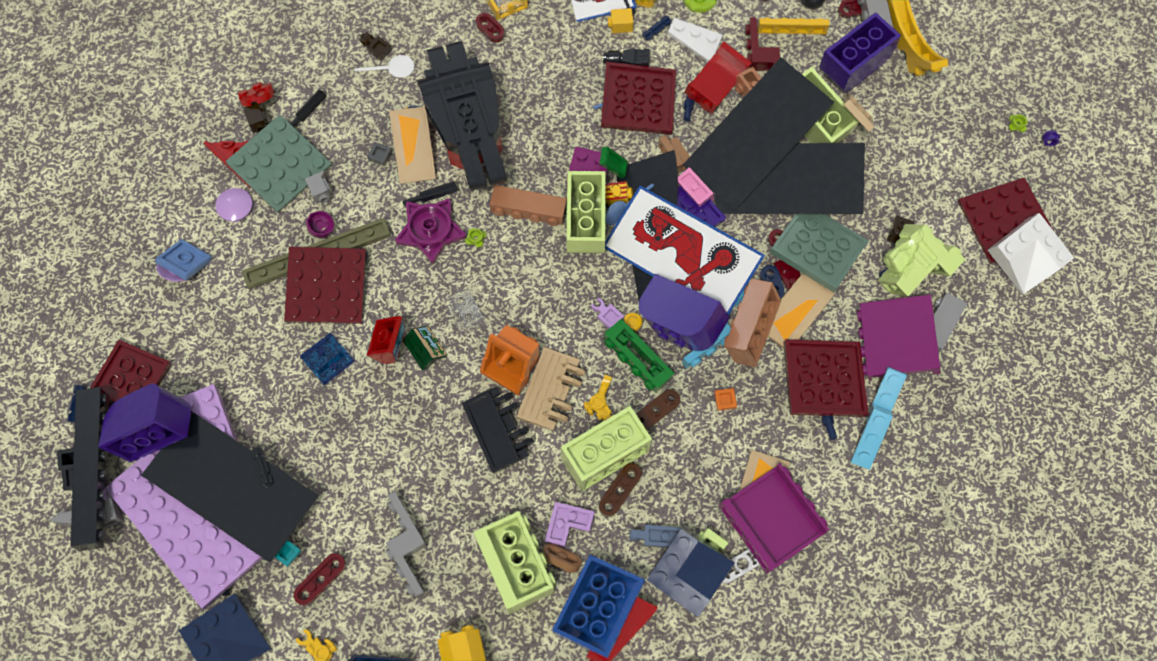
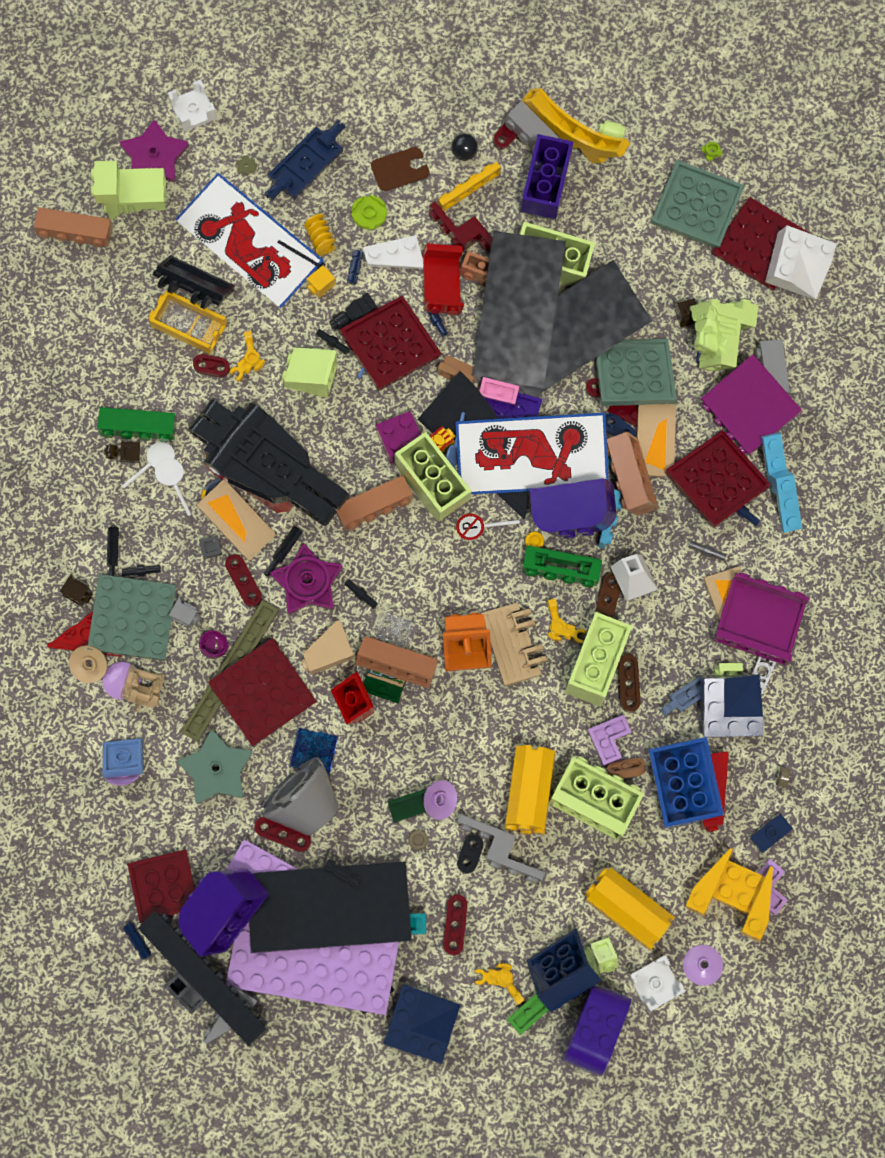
camera: 40 degrees left, 5 degrees up
(218, 174) = (82, 670): none -> tan dish
(236, 223) = (140, 694): none -> tan piece
(242, 330) = (226, 779): none -> sand green plate
(245, 398) = (275, 829): none -> dark red plate
(258, 93) = (60, 570): red plate -> none
(281, 388) = (303, 799): none -> light grey cone
(316, 136) = (141, 570): none -> black bar
(348, 488) = (418, 840): none -> dark tan tile
(363, 455) = (407, 806): none -> dark green panel
(379, 531) = (470, 854): none -> black plate
(383, 202) = (246, 588): none -> dark red plate
(390, 477) = (446, 799): none -> lavender dish
(395, 83) = (169, 473): none -> white piece
(401, 31) = (136, 423): none -> green brick
(401, 290) = (328, 650): none -> tan slope
(445, 336) = (396, 662): none -> nougat brick
(463, 267) = (361, 594): none -> black bar
(464, 513) = (530, 790): none -> yellow brick
(474, 232) = (348, 557): lime plate -> none
(493, 429) = (495, 708): black hinge -> none
(521, 43) = (250, 360): none -> yellow piece
(560, 78) = (311, 371): none -> yellowish green slope
(592, 276) = (472, 527): none -> piece
(595, 69) = (332, 341): none -> black bar
(608, 315) = (513, 549): lavender plate -> none
(613, 162) = (417, 416): green tile -> none
(691, 406) = (633, 577): none -> white slope
(725, 399) = (653, 551): orange tile -> none
(771, 430) = (707, 550): none -> flat silver bar
(858, 111) = (585, 233): tan tile -> none
(943, 51) = (612, 129): none -> yellowish green brick
(974, 155) = (697, 204): none -> sand green plate
(1051, 136) = (746, 145): dark purple plate -> none

